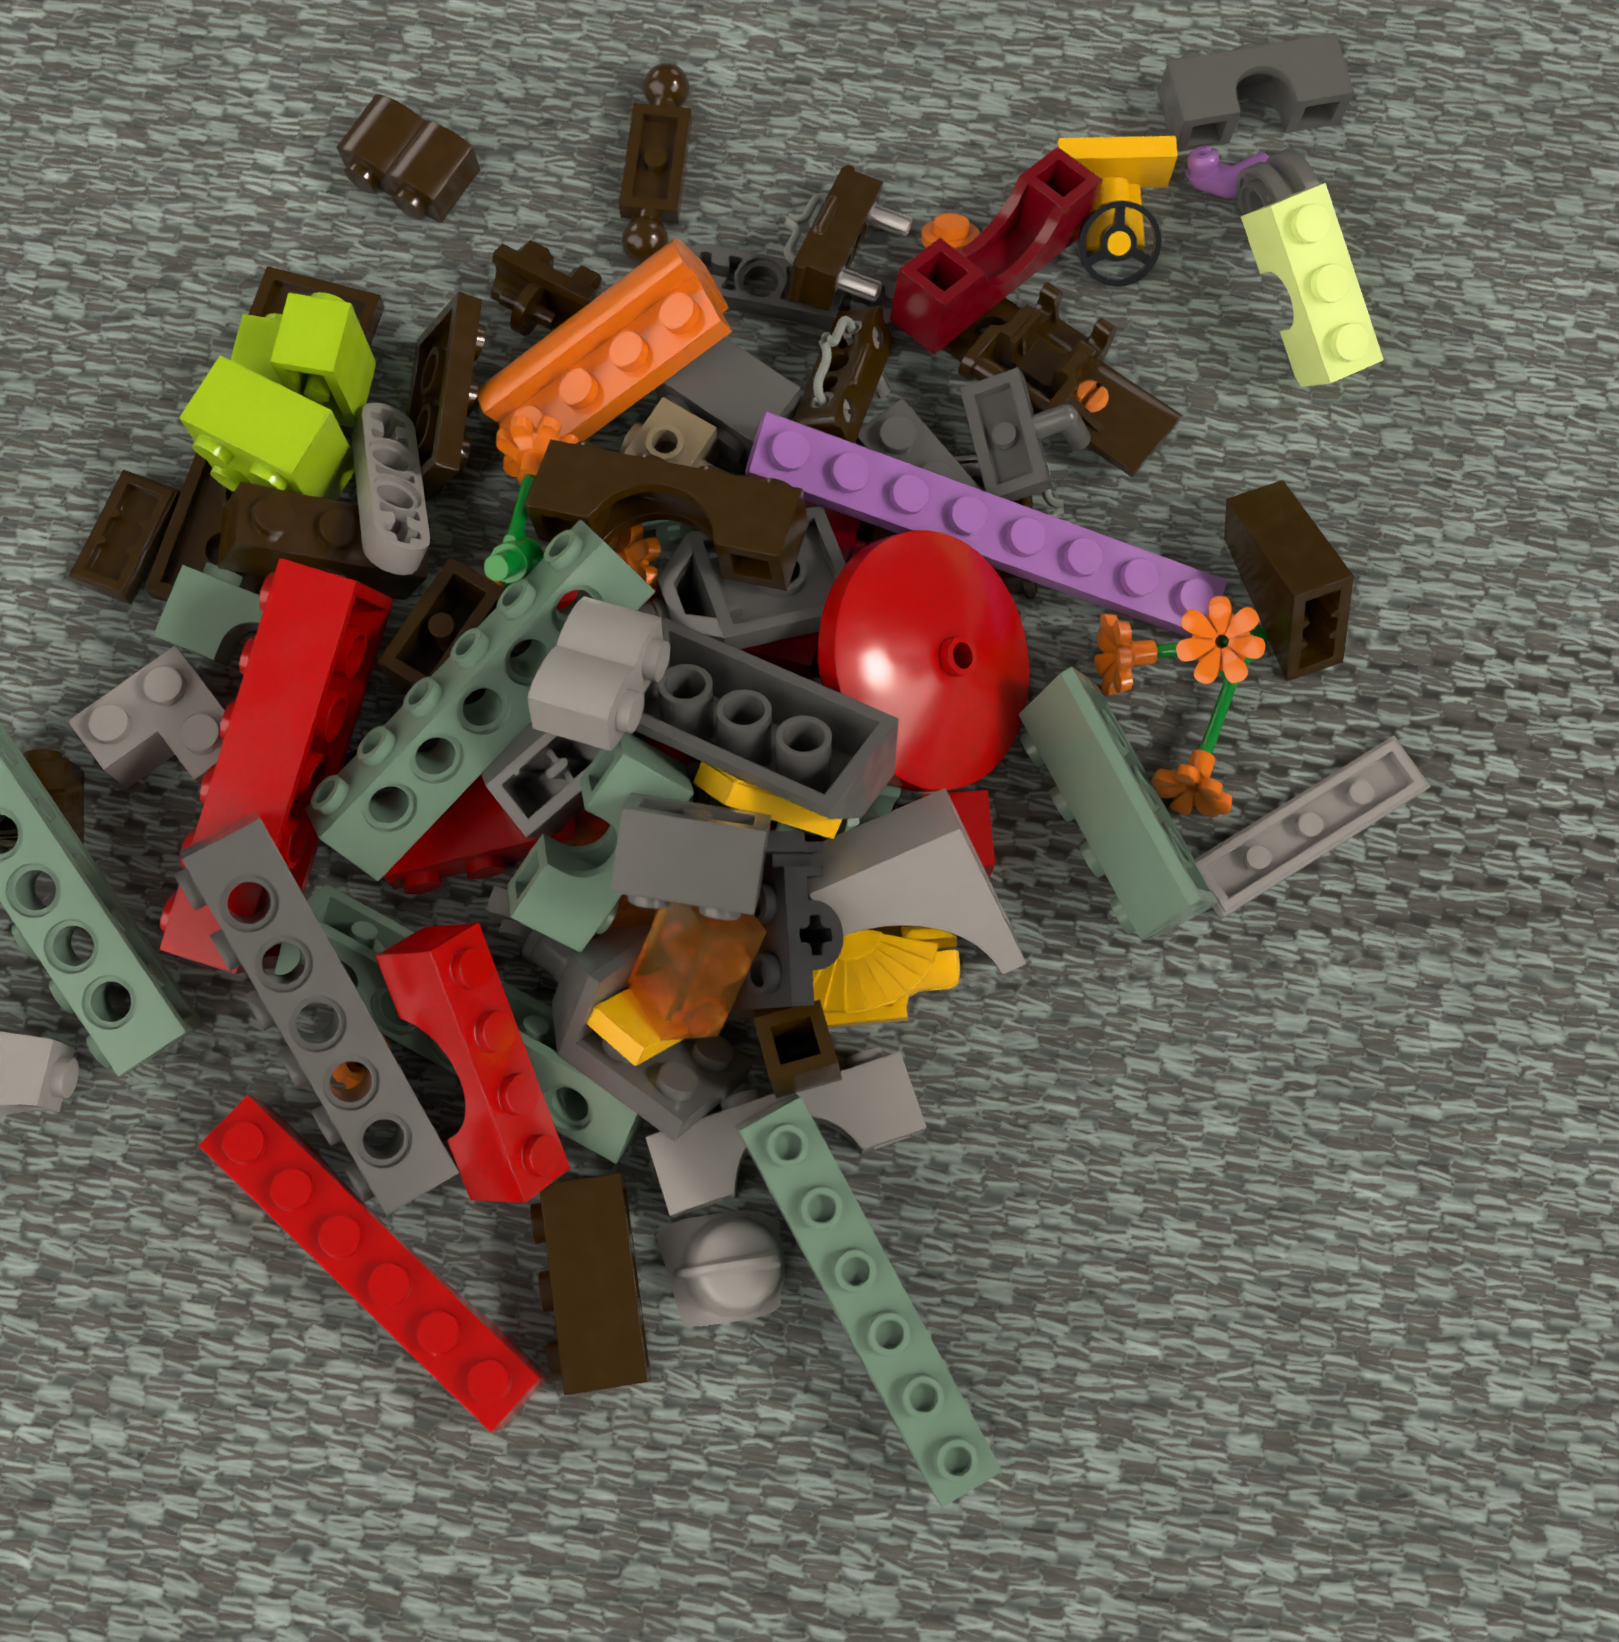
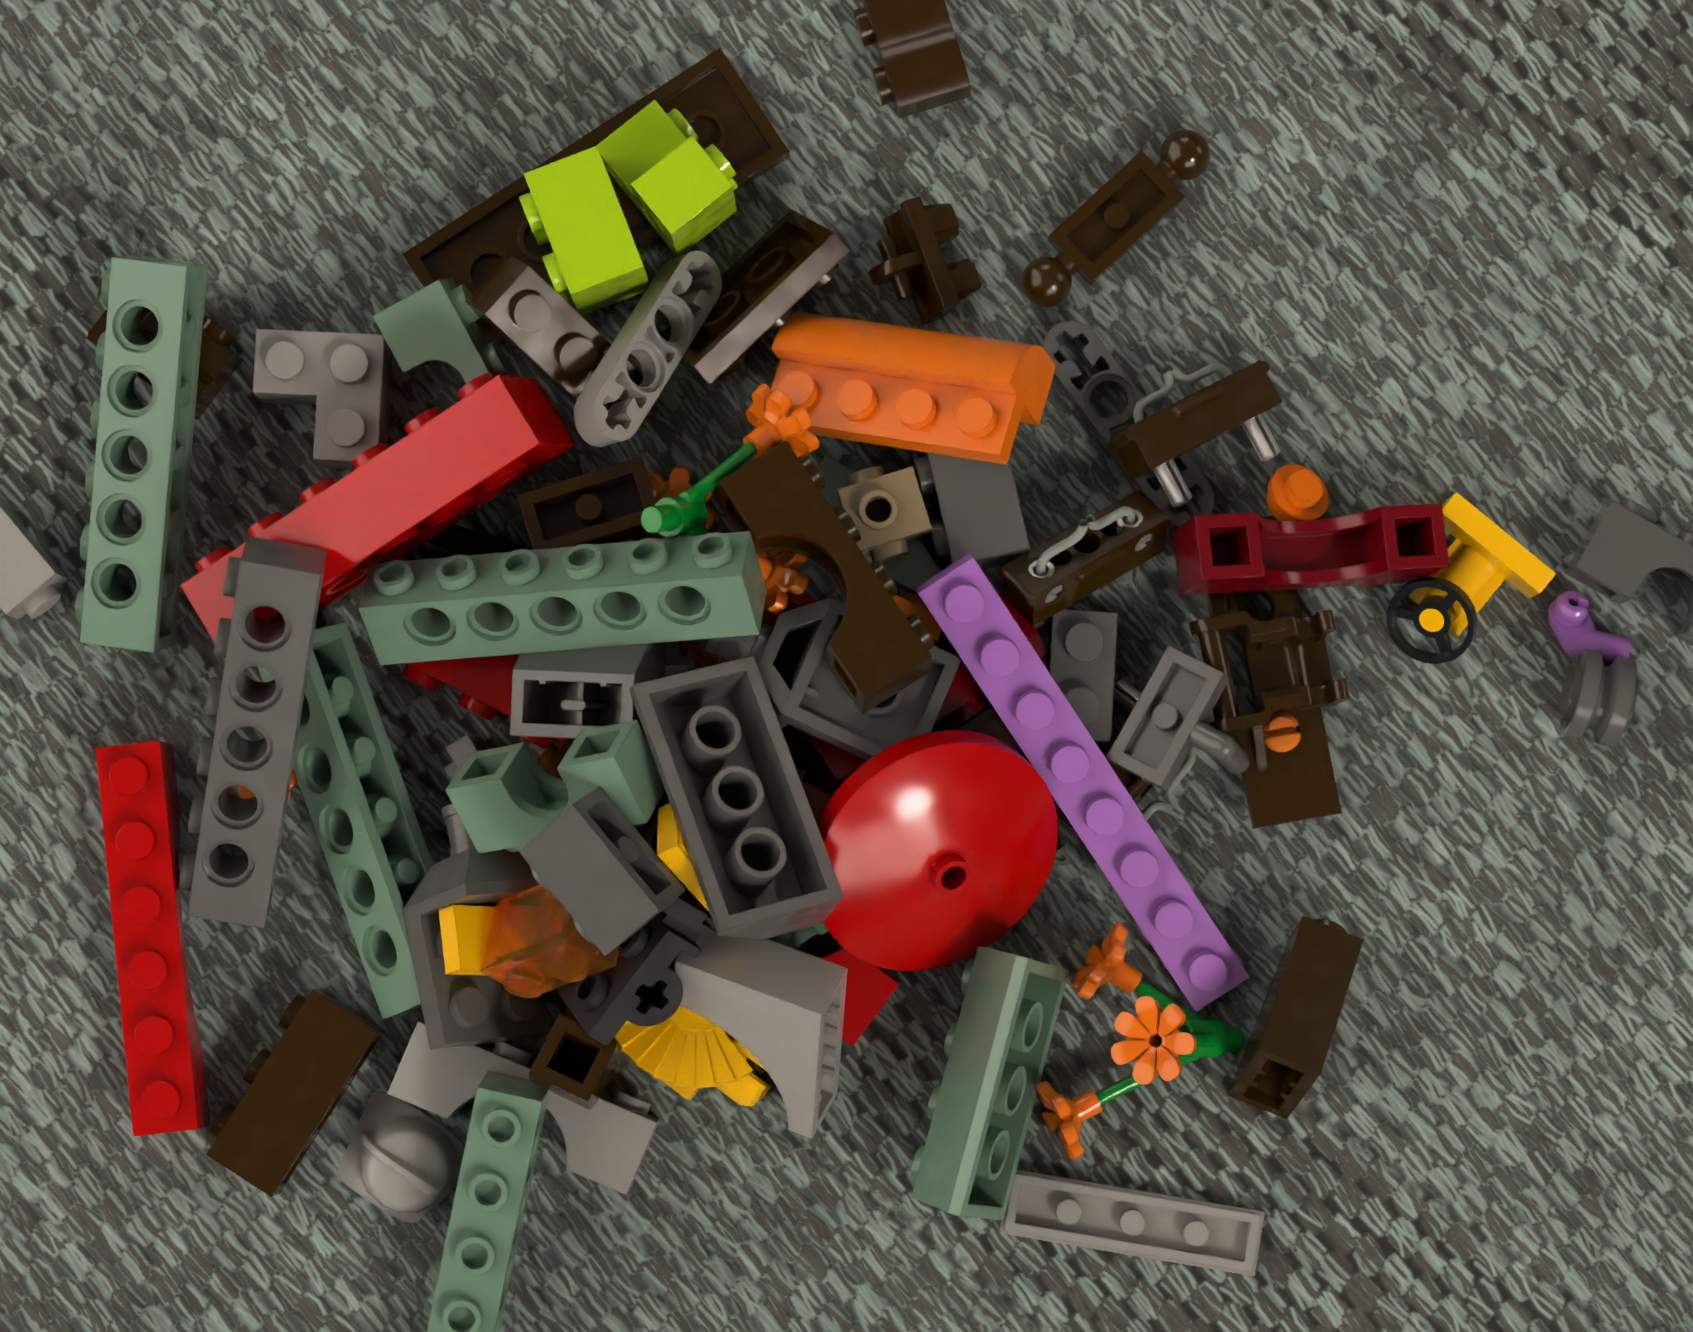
camera: 45 degrees right, 10 degrees up
(126, 537) = (425, 193): dark brown plate -> none
(453, 993) = (360, 806): red arch -> none
(598, 674) = (651, 676): light grey brick -> none
(1307, 251) = (1544, 793): yellowish green arch -> none

